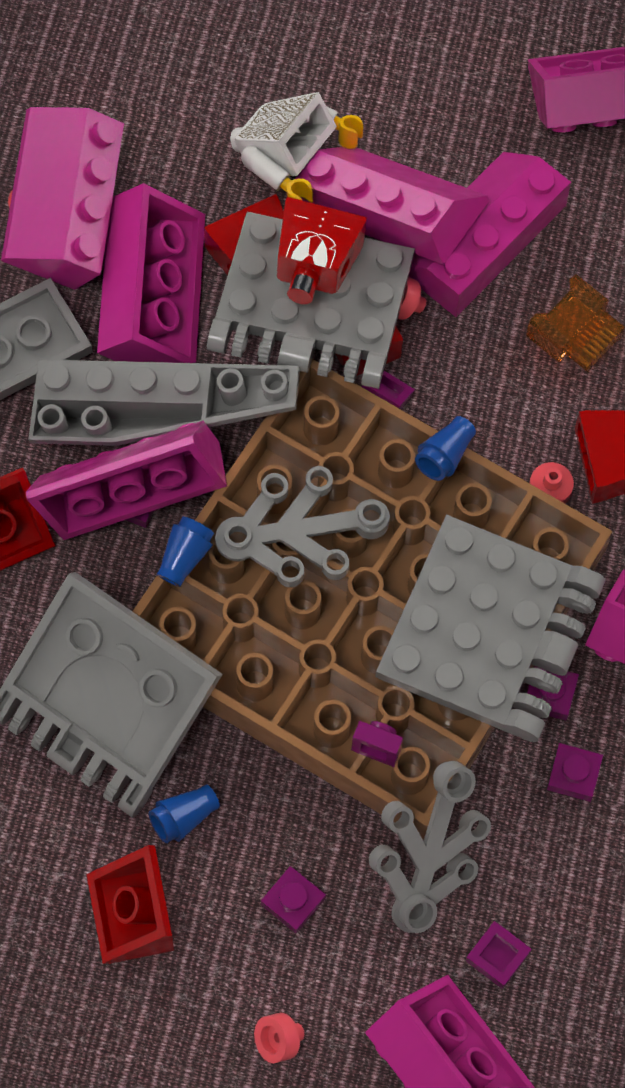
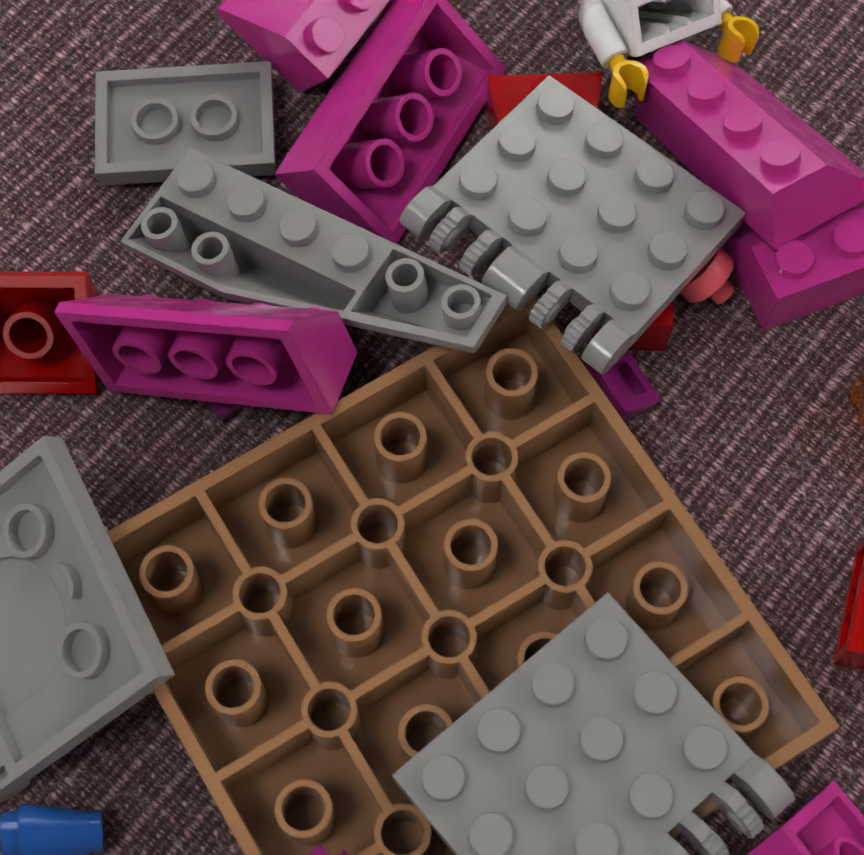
camera: 30 degrees right, 0 degrees up
(185, 549) = (223, 475): blue cone -> none
(295, 529) = (388, 514): light grey plant -> none
(317, 248) = (609, 151): red torso -> none
(443, 451) = (650, 499): blue cone -> none
(553, 480) = (789, 611): coral tile -> none

